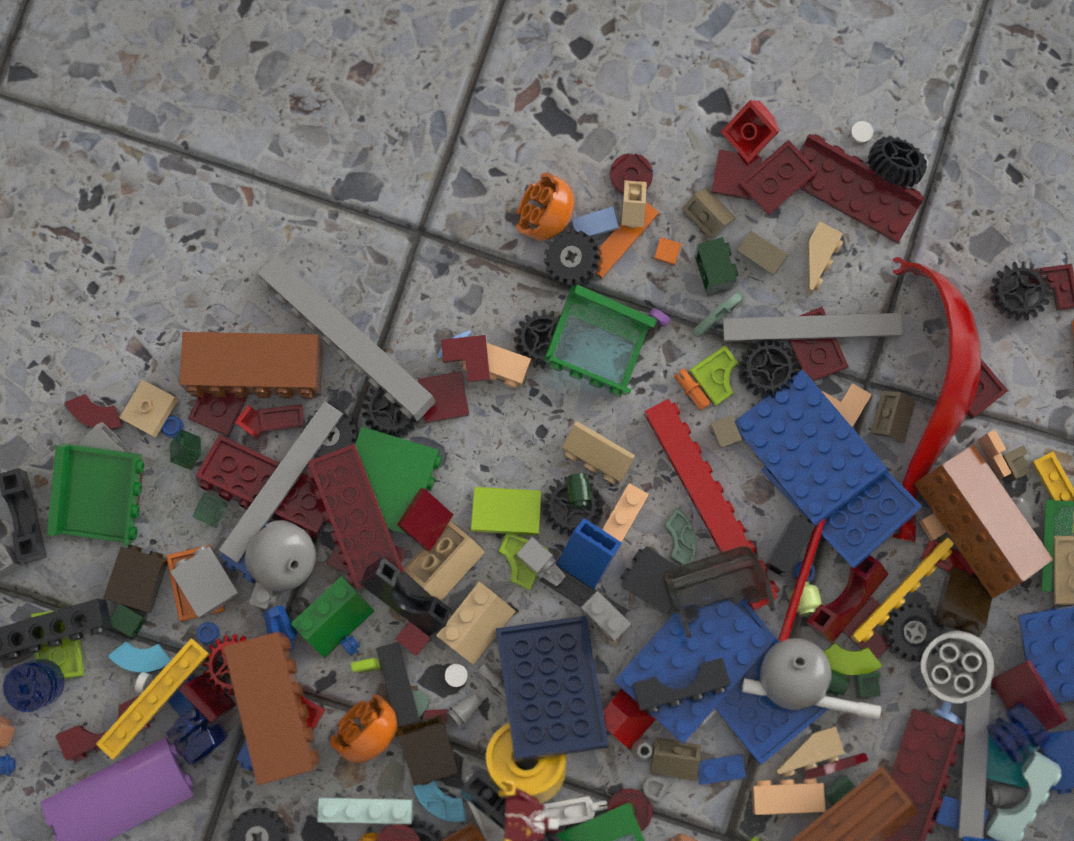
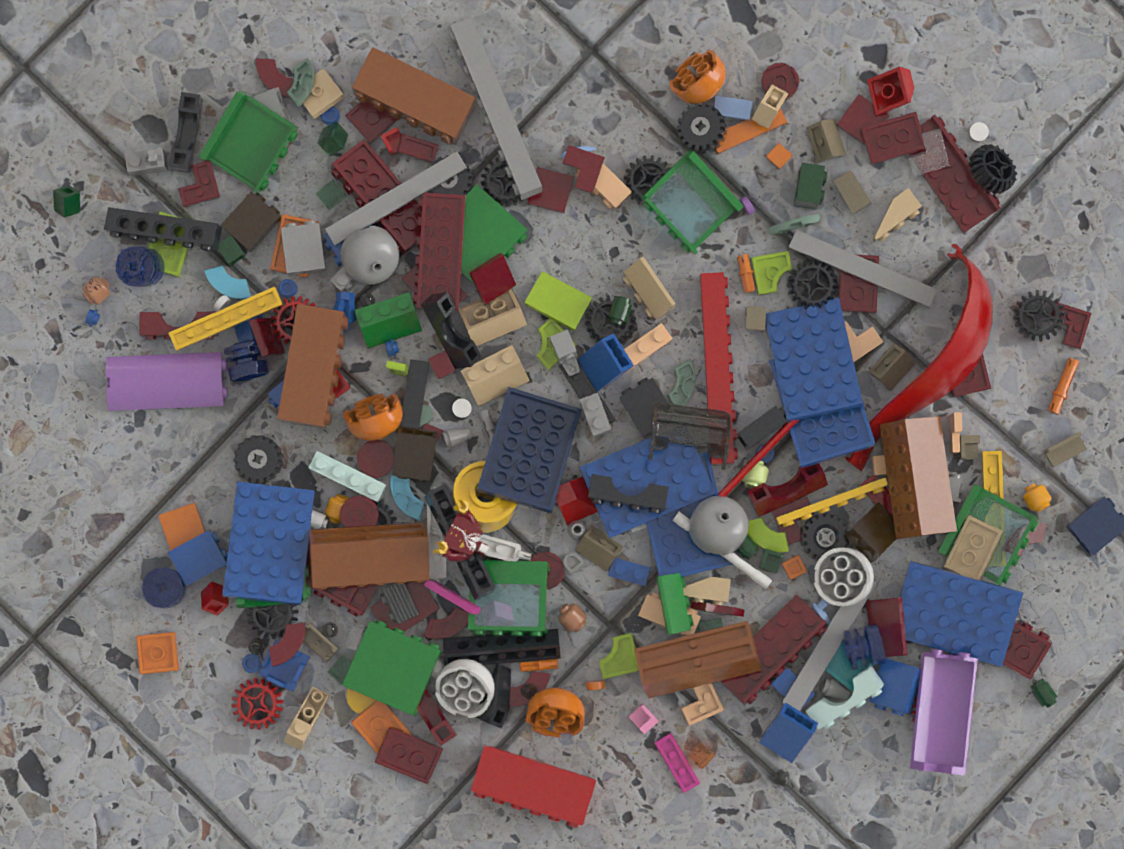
camera: 20 degrees right, 5 degrees up
(70, 566) = (205, 187): none -> dark red tile
(126, 404) = (303, 82): none -> sand green tile
(387, 775) = (375, 458): none -> dark red tile
(789, 784) = (674, 603): none -> green slope
(830, 177) = (933, 157): none -> clear tile
(895, 680) = (794, 567): none -> orange tile

